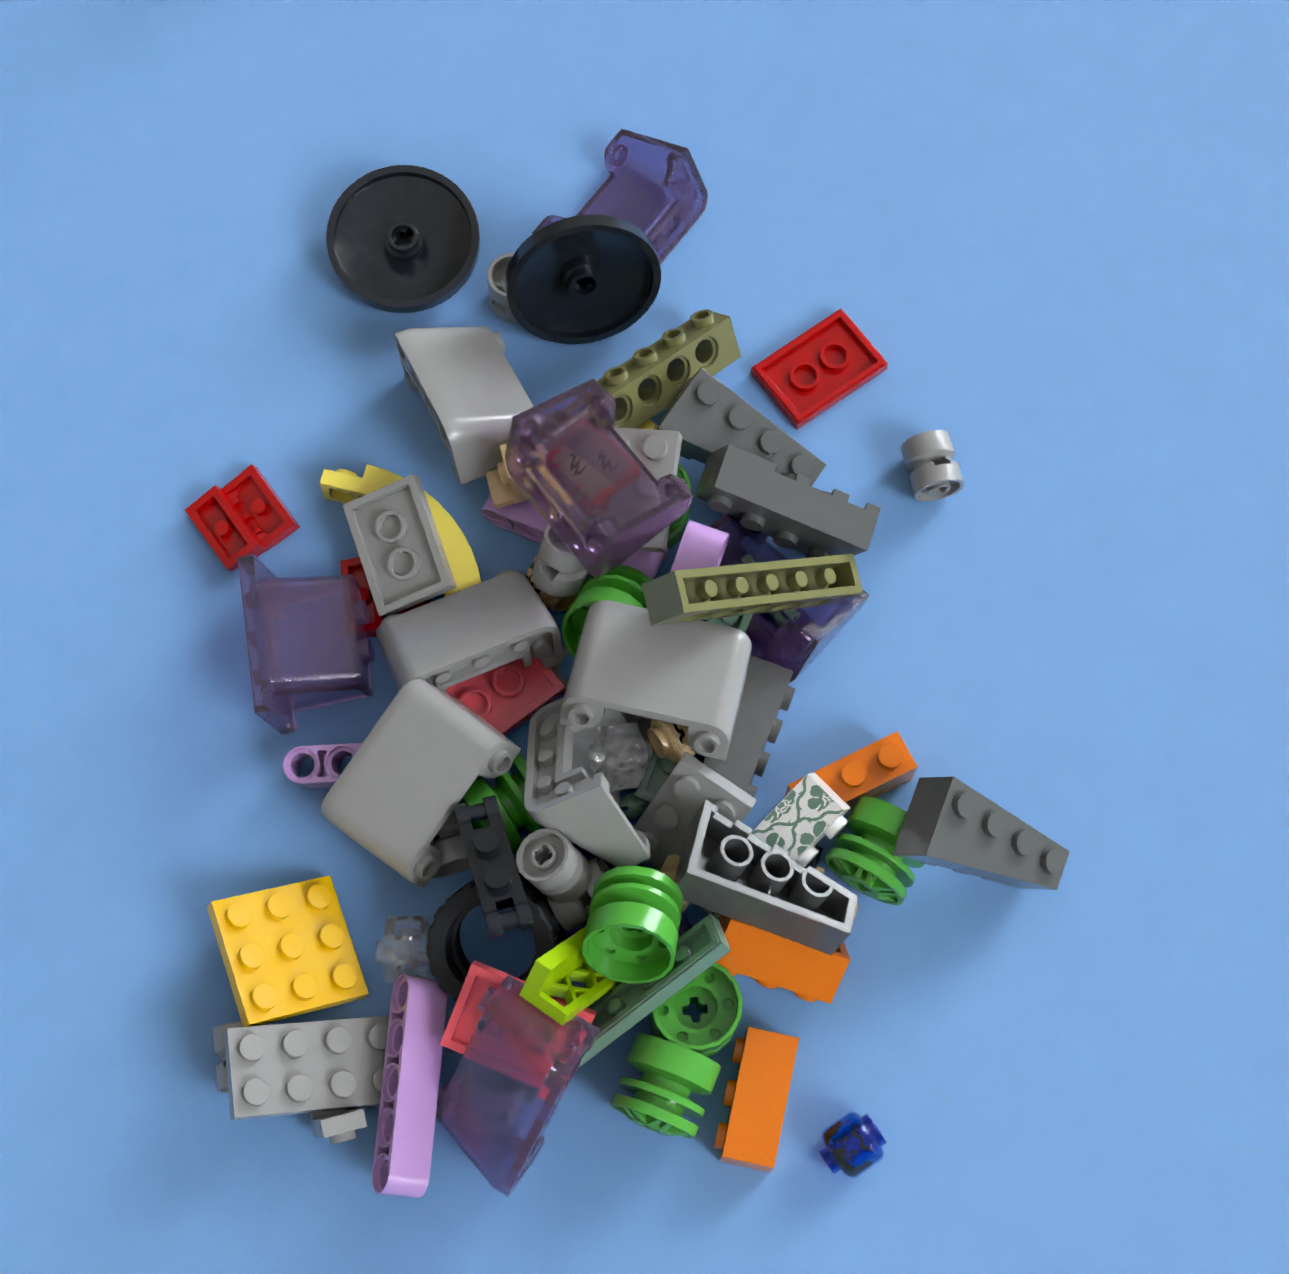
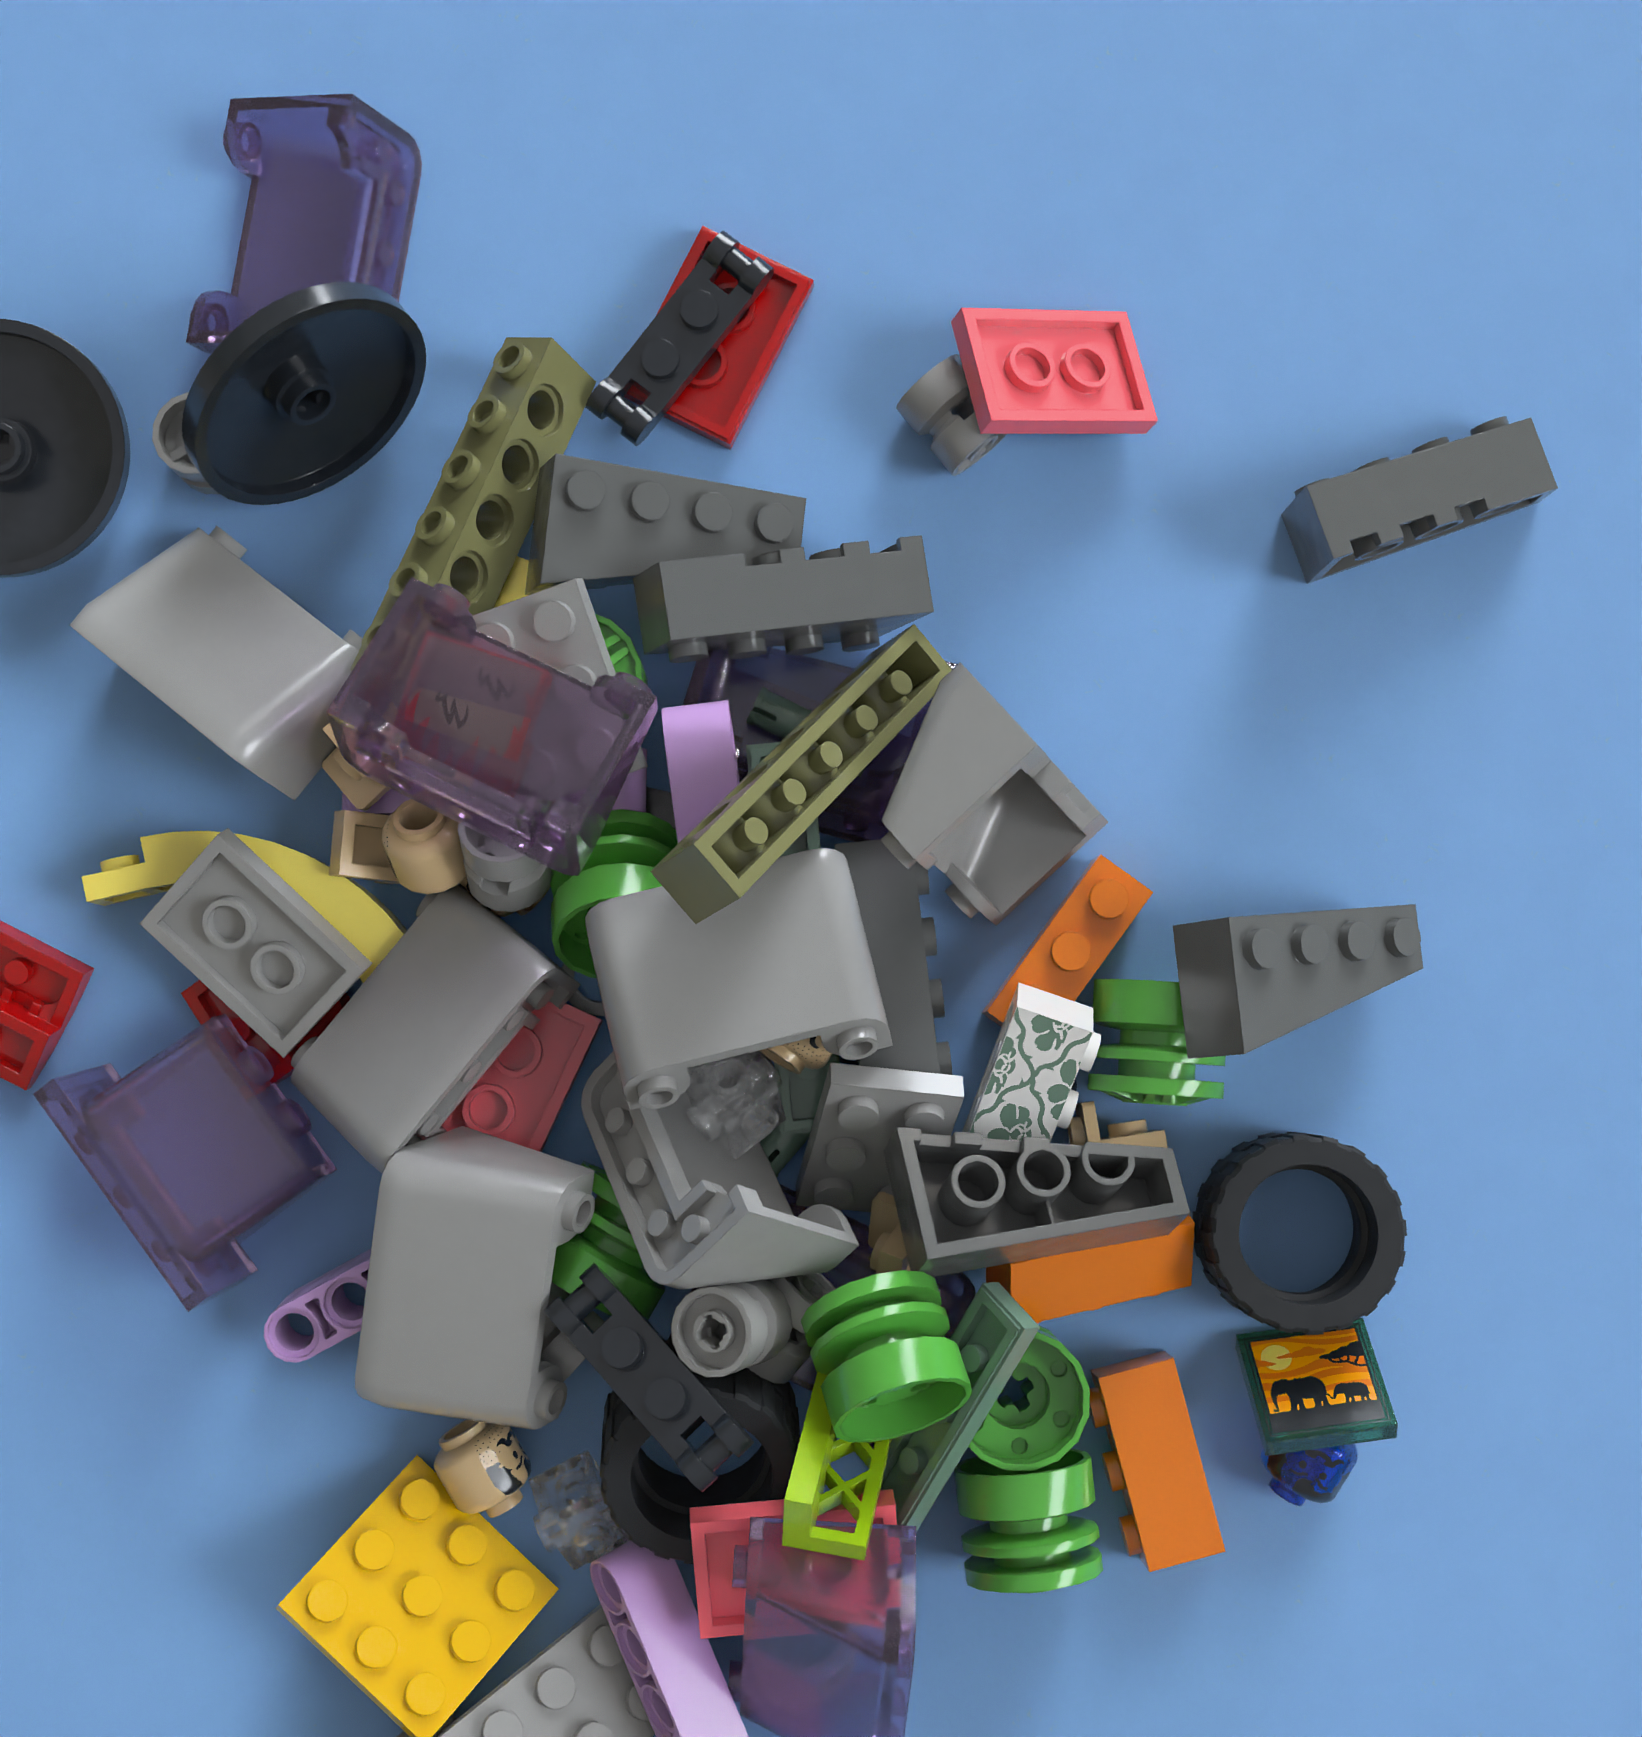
camera: 30 degrees left, 15 degrees up
(364, 898) = (482, 1467): none -> tan head
(490, 532) = (359, 848): none -> tan bracket
(519, 538) = (423, 848): none -> tan head
(799, 356) = (680, 339): none -> black plate
(845, 664) = (984, 803): none -> light grey windscreen
(876, 1101) = (1315, 1389): none -> tile
(939, 962) = (1374, 1249): none -> black tyre
(998, 466) = (1053, 371): none -> coral plate
(1175, 632) = (1417, 497): none -> dark grey wedge

